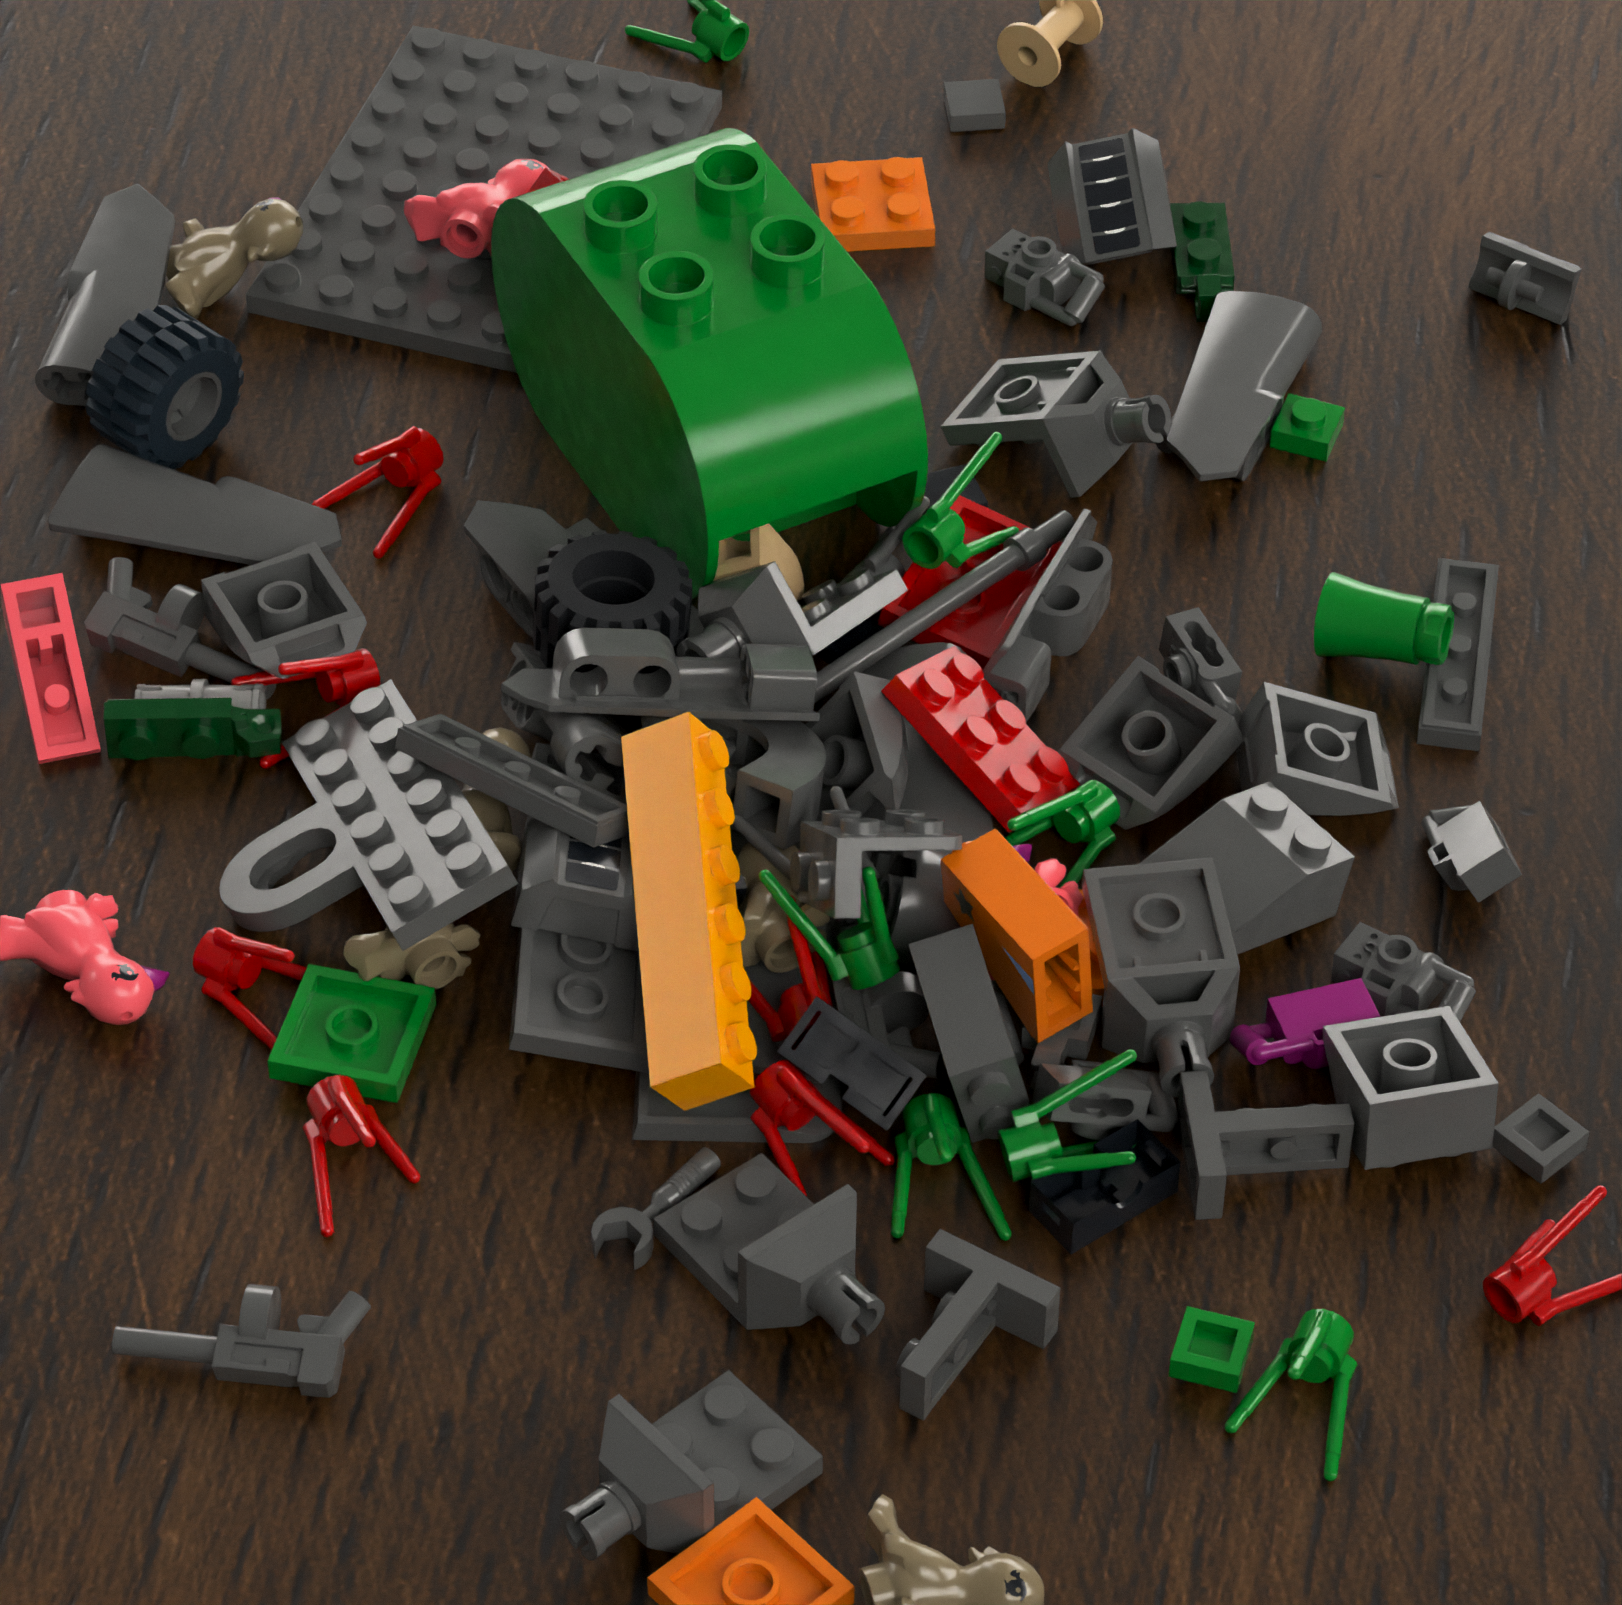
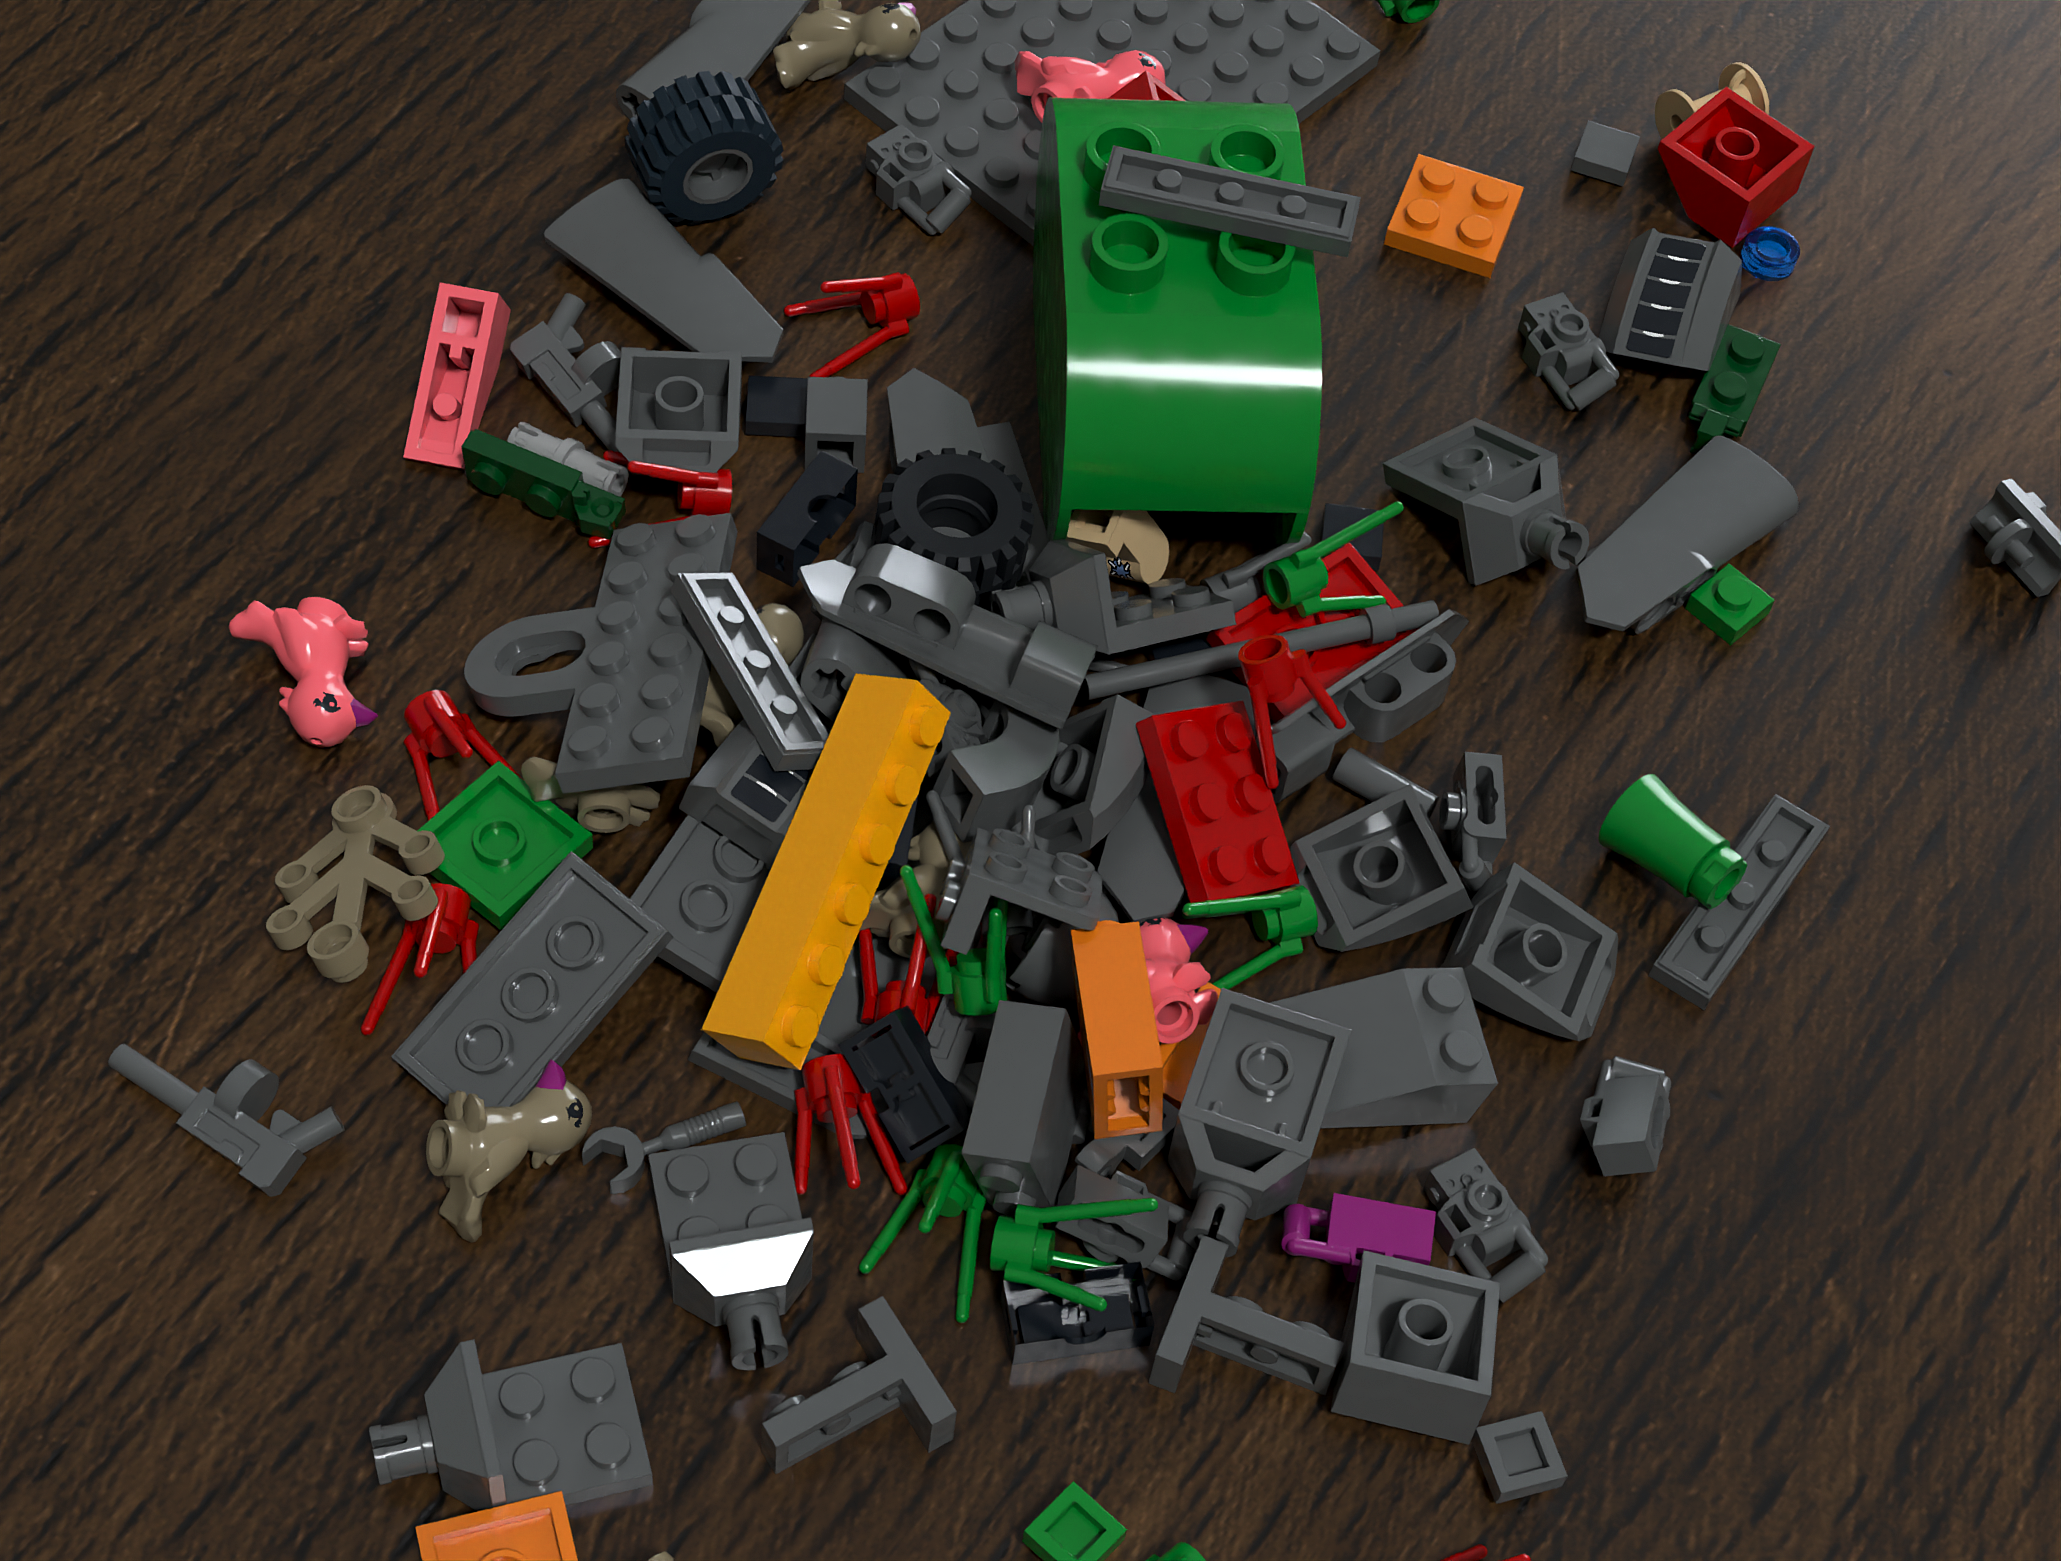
camera: 20 degrees right, 10 degrees up
(214, 1061) = (358, 822): none -> dark tan plant
(366, 351) = (916, 180): none -> dark grey piece
(370, 583) = (776, 406): none -> black tile
(431, 578) = (836, 419): none -> dark grey brick
(456, 659) = (806, 517): none -> black piece
(473, 1132) = (535, 989): none -> dark grey tile
(514, 1259) = (486, 1144): none -> dark tan animal
(743, 210) = (1229, 201): none -> dark grey tile
(975, 602) = (1270, 678): none -> red plant
(1086, 679) = (1375, 780): none -> dark grey hinge
(1099, 68) = (1733, 165): none -> red slope
(1173, 131) = (1770, 253): none -> clear blue tile

